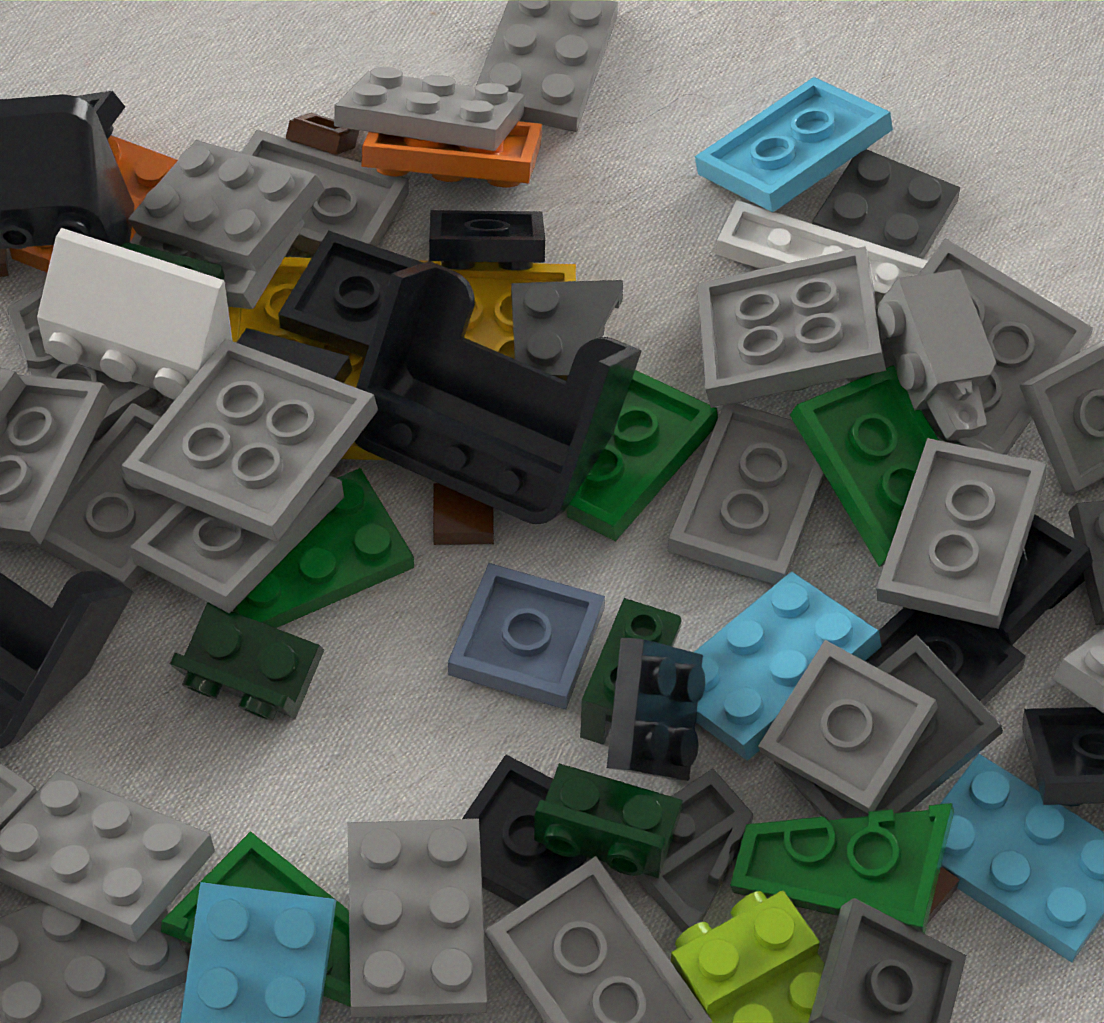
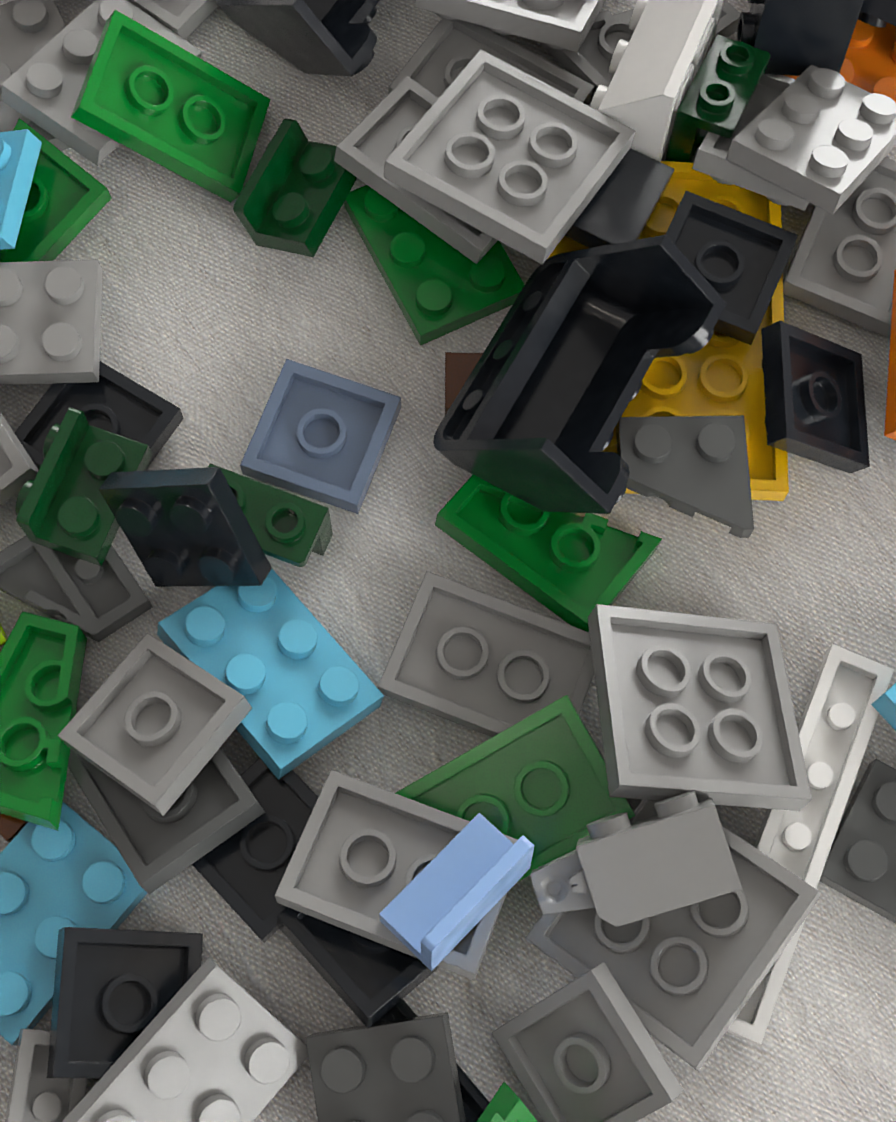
camera: 90 degrees right, 15 degrees up
(154, 768) = (171, 107): none -> green plate
(984, 465) = (456, 890): none -> light blue panel

